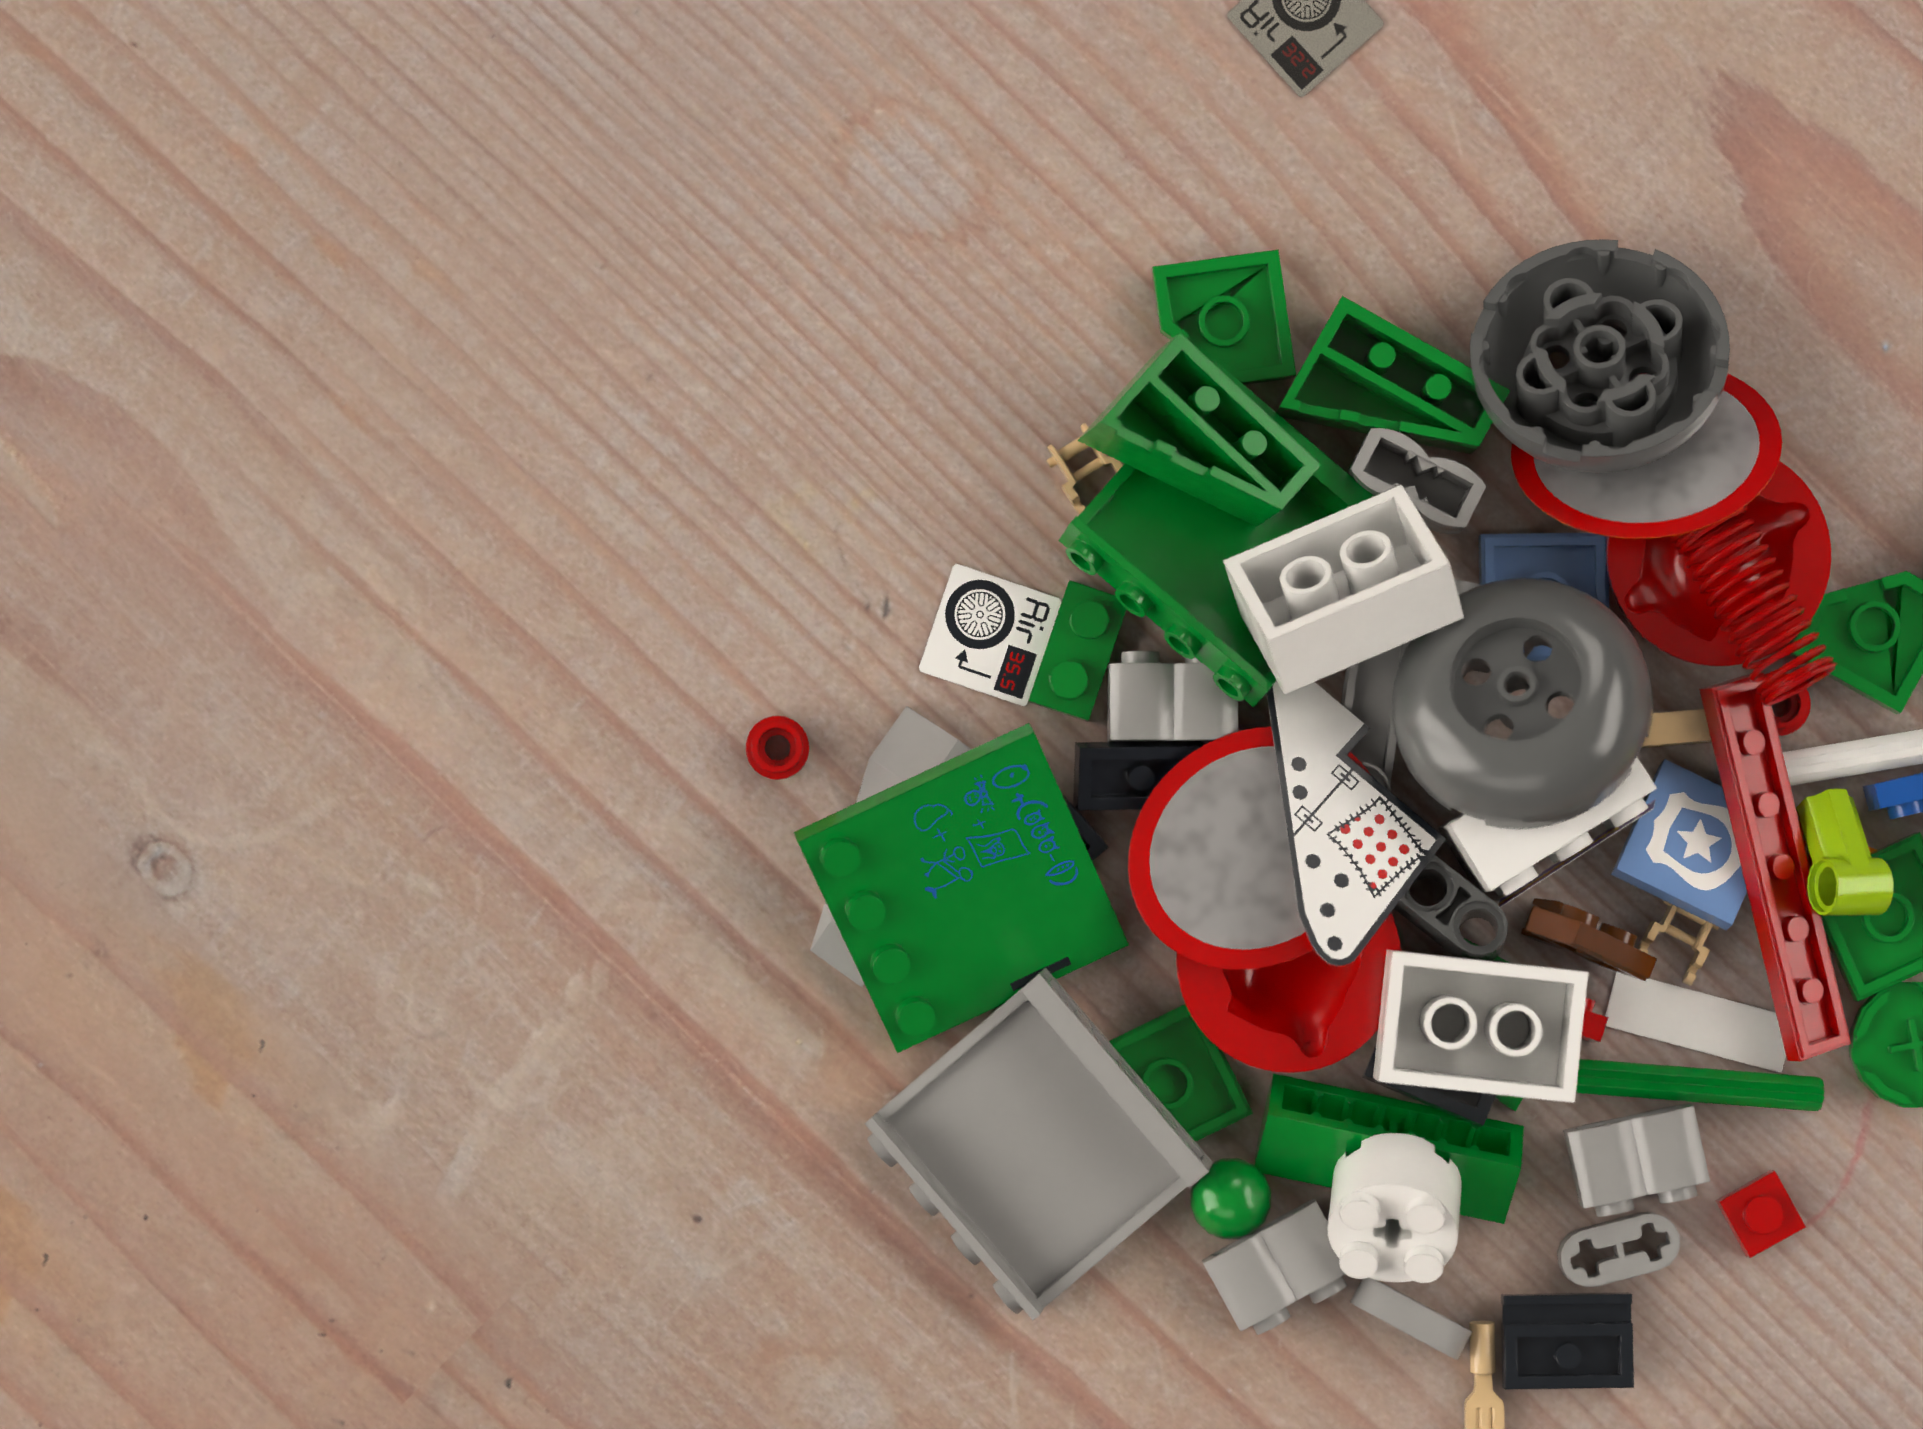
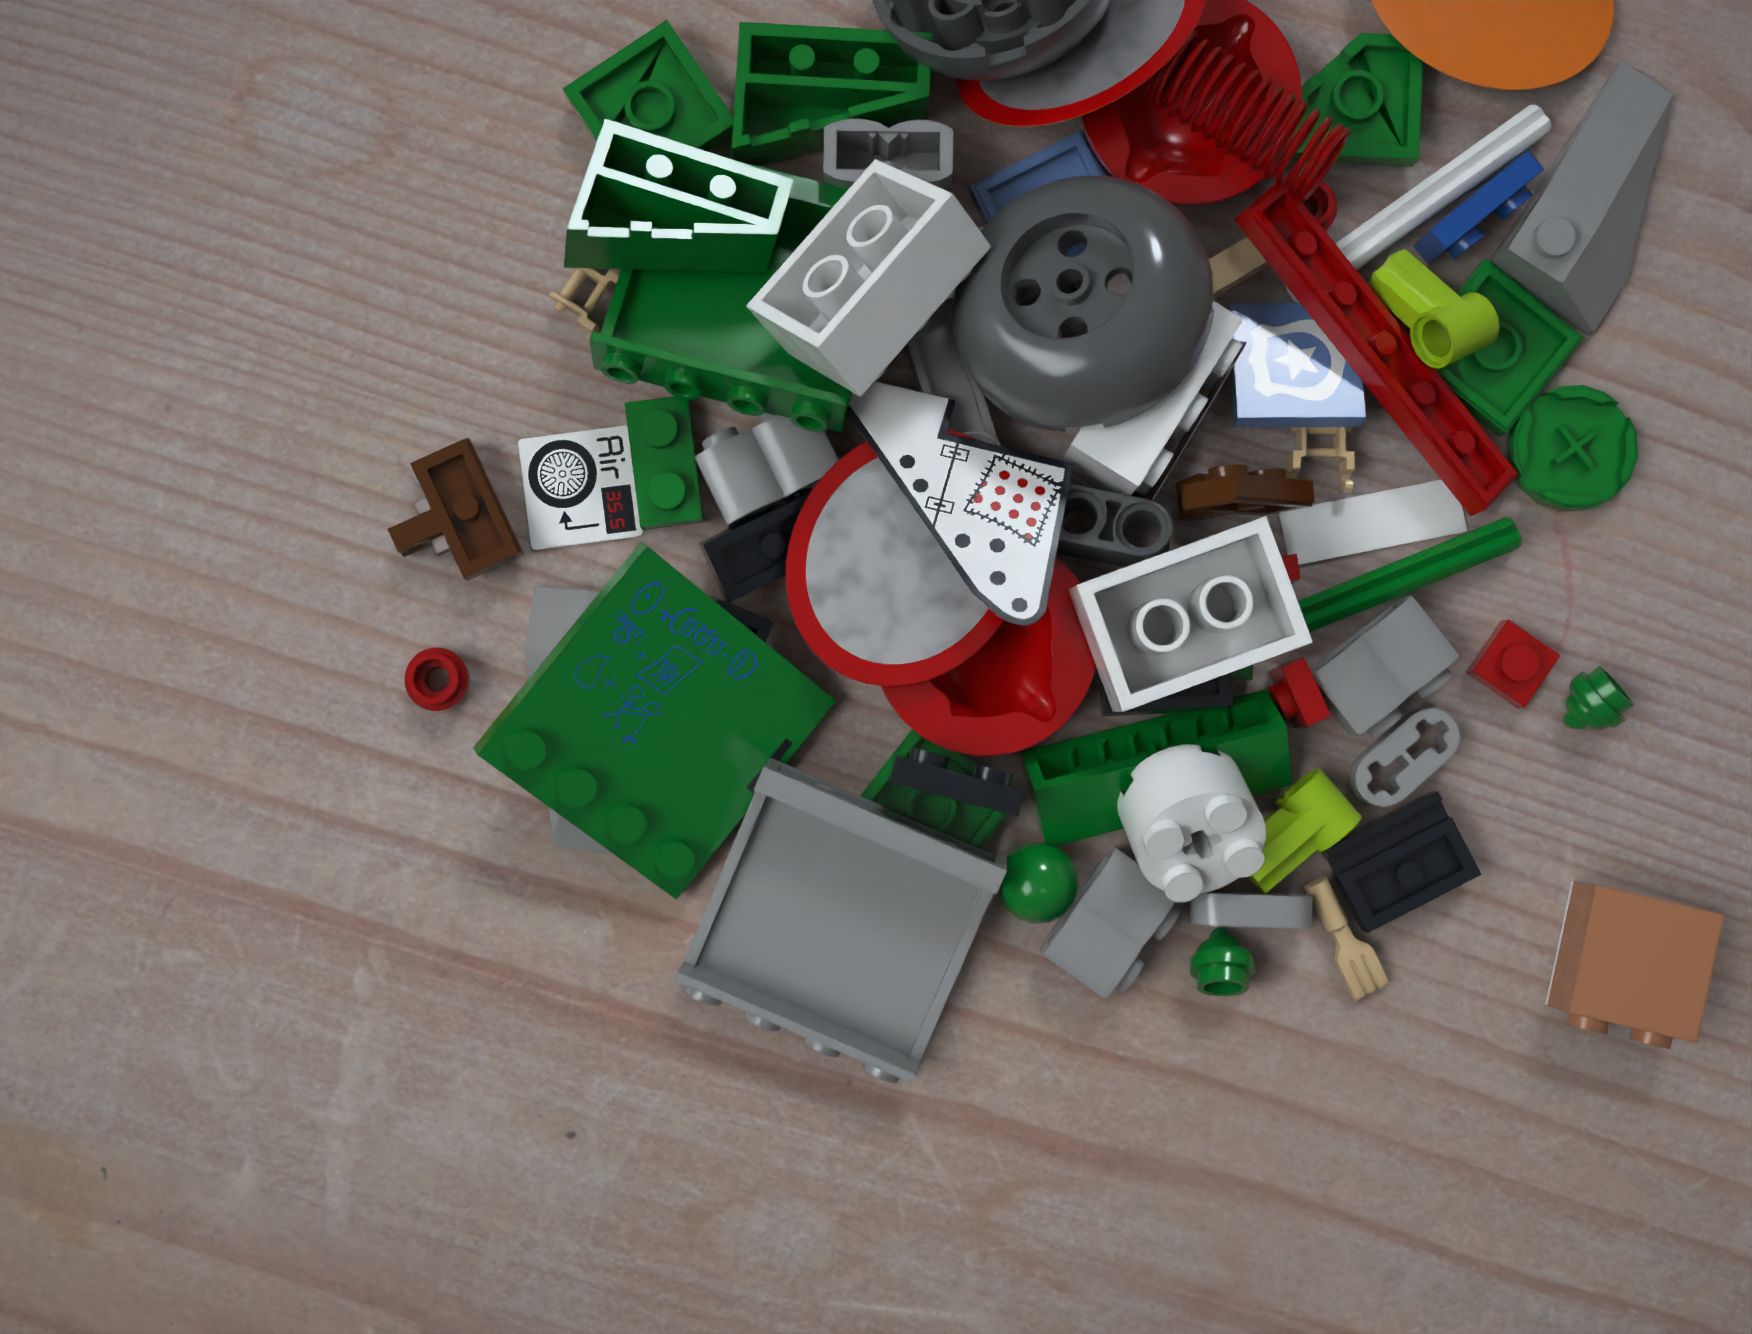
camera: 25 degrees left, 0 degrees up
(871, 607) = (458, 513): none -> reddish brown hinge
(1182, 1052) = (984, 788): none -> black plate
(1360, 1355) = (1222, 965): none -> green plate
(1499, 1262) = (1308, 819): none -> lime piece
(1547, 1144) = (1297, 694): none -> red plate
(1818, 1284) = (1595, 701): none -> green plate

